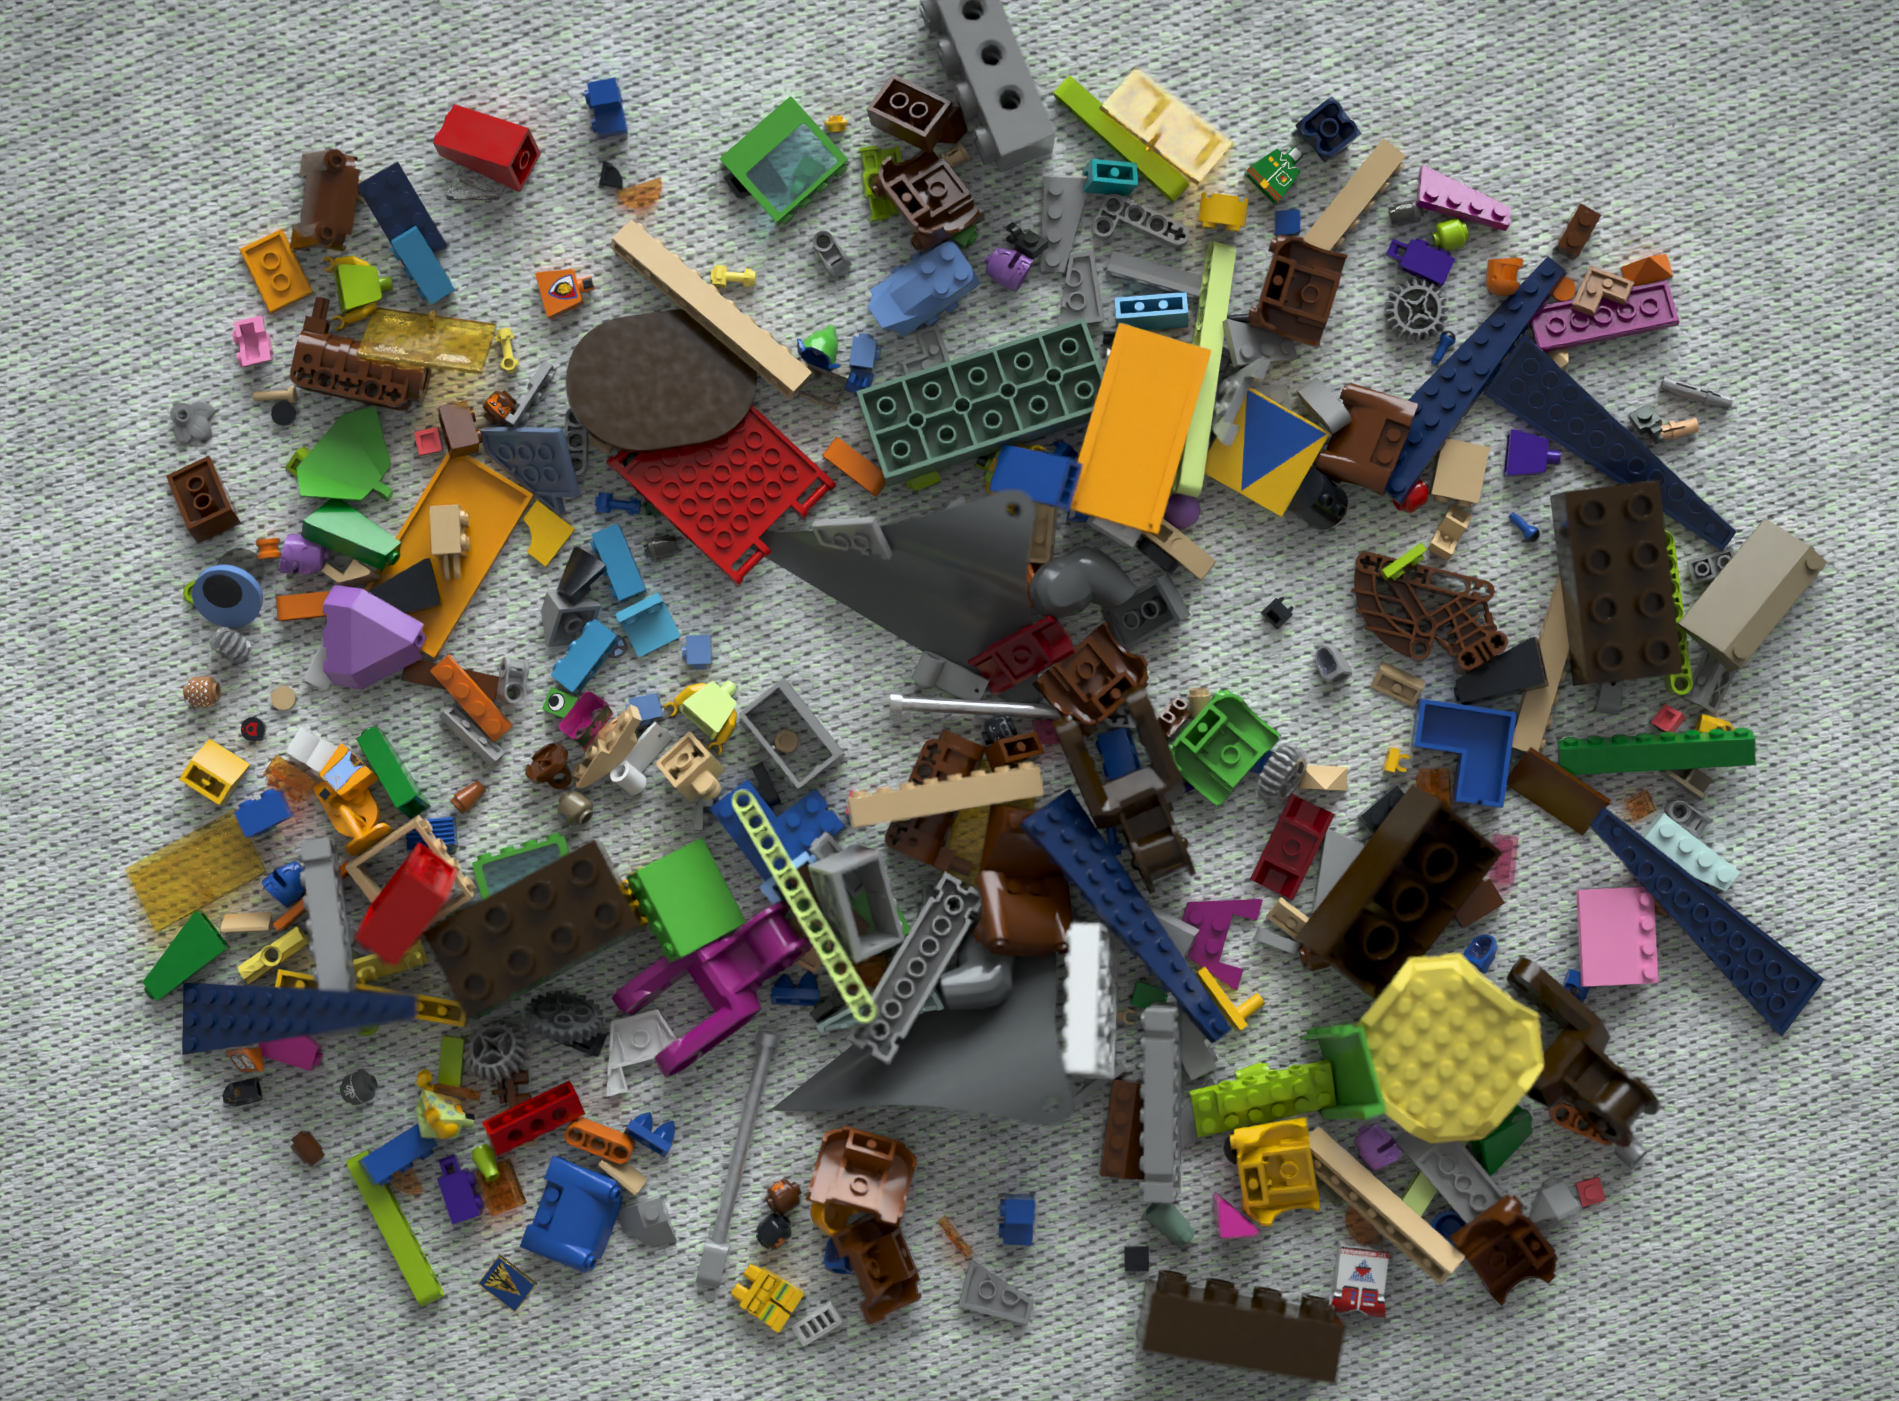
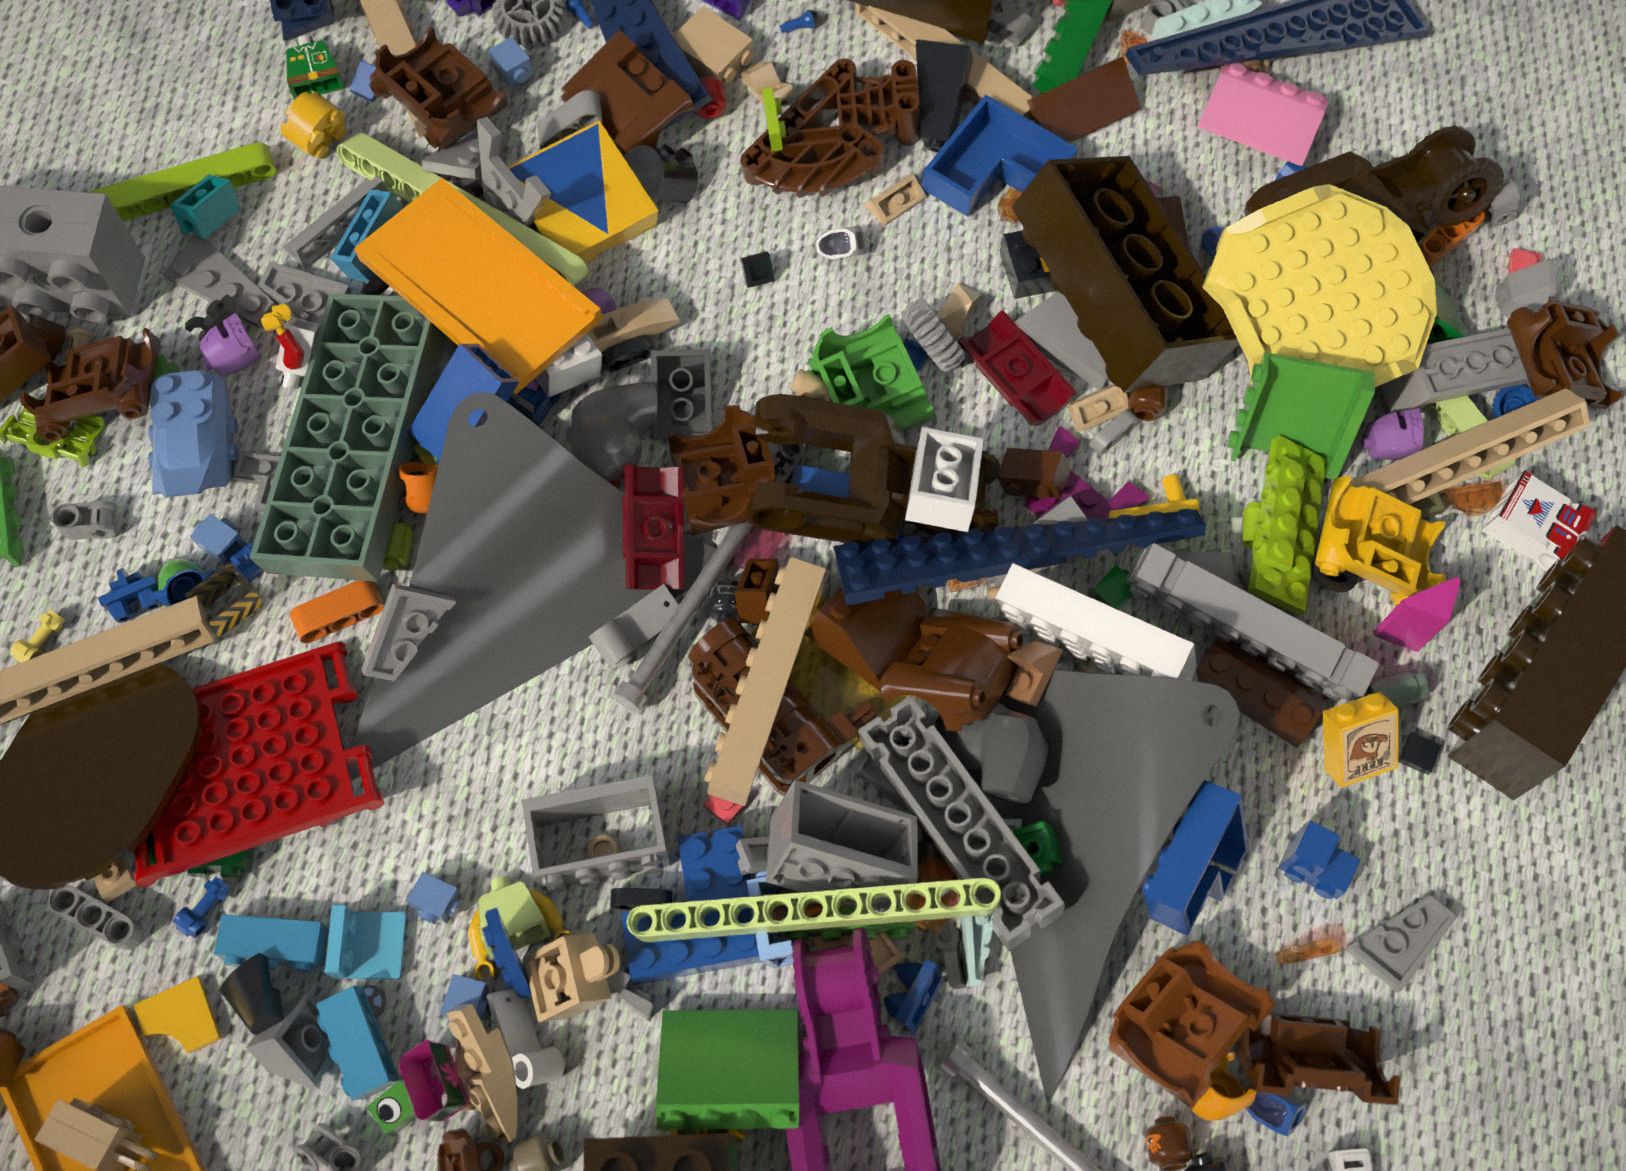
camera: 65 degrees left, 20 degrees down
(536, 460) = (80, 975): sand blue wing -> none
(661, 547) = (286, 880): clear smoke brick -> none
(683, 721) = (505, 953): none -> blue tile
(784, 315) = (128, 590): none -> blue hips
(935, 1029) = (1046, 838): none -> green brick
(964, 1136) = (1184, 880): none -> blue piece
(966, 482) = (418, 487): none -> orange helmet
(1034, 317) = (295, 340): none -> torso
(1046, 970) = (1035, 668): none -> medium nougat slope
(1117, 1212) = (1360, 739): none -> brick
(1142, 225) = (270, 205): light grey beam -> none
(1144, 846) = (944, 479): none -> white brick
(1166, 125) = (191, 134): clear yellow door -> none
(1208, 899) = (1034, 473): none -> reddish brown brick
(1359, 326) = (511, 62): none -> medium blue brick
(1392, 760) = (972, 234): yellow tile -> none

